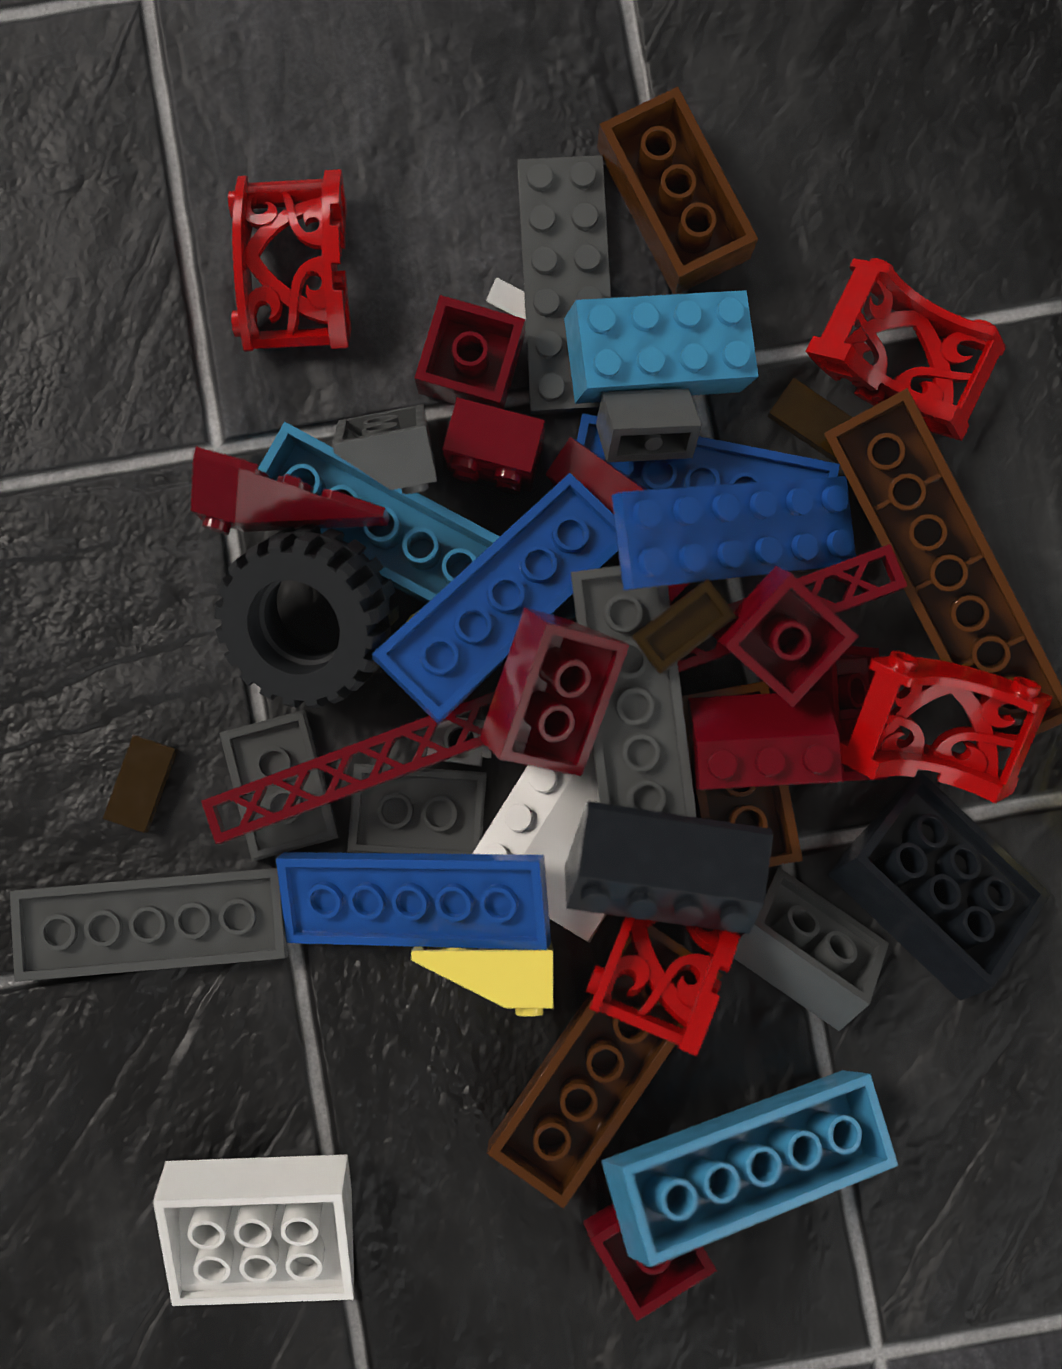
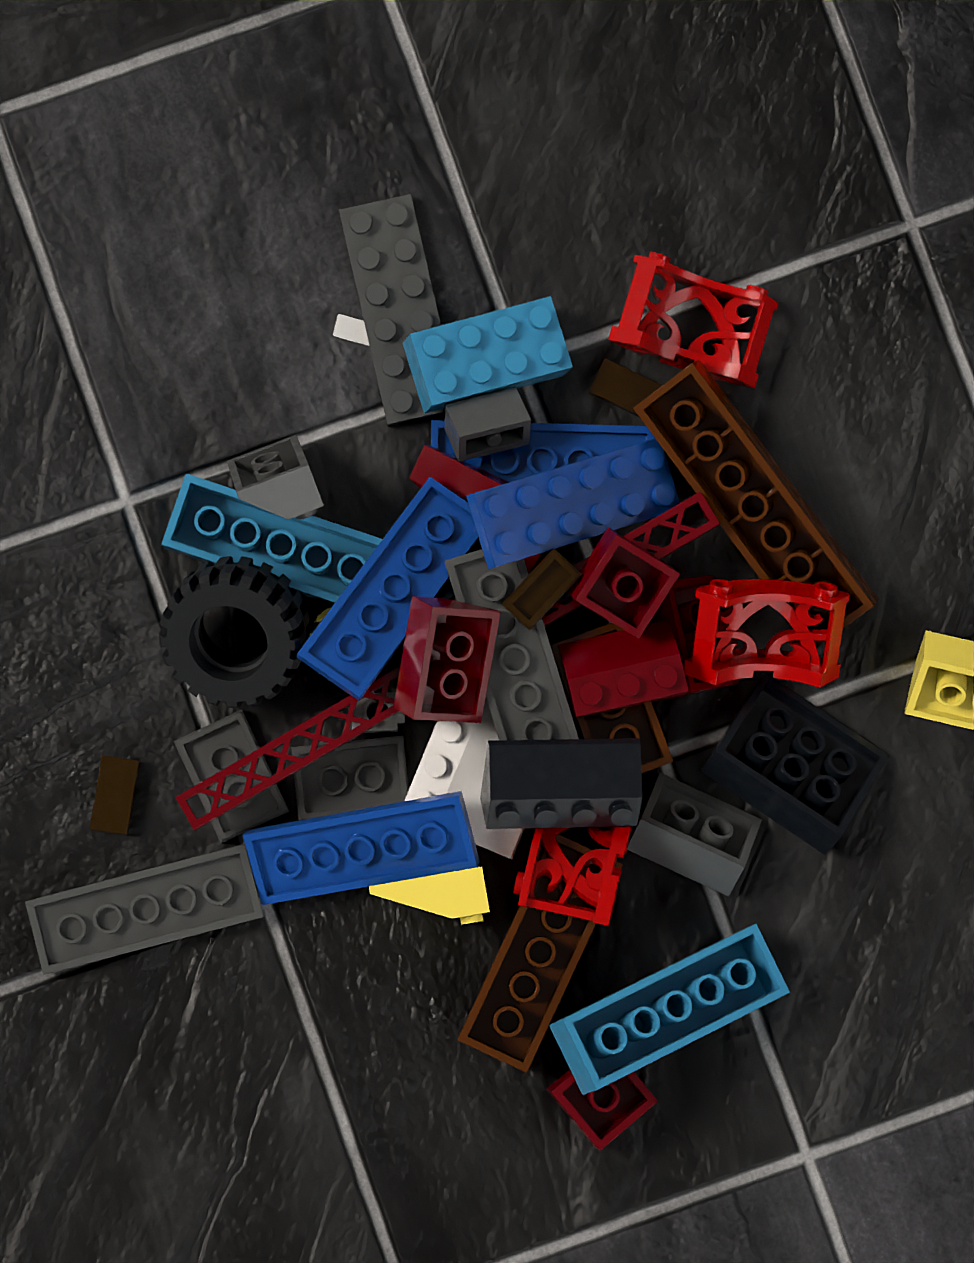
camera: 15 degrees left, 0 degrees up
(241, 497) = (169, 544): dark red wedge -> none
(256, 1229) = (281, 1142): white slope -> none
(314, 202) = (201, 366): red fence -> none
(469, 353) = (329, 389): dark red brick -> none
(493, 446) = (362, 463): dark red brick -> none
(676, 191) = (478, 218): reddish brown brick -> none

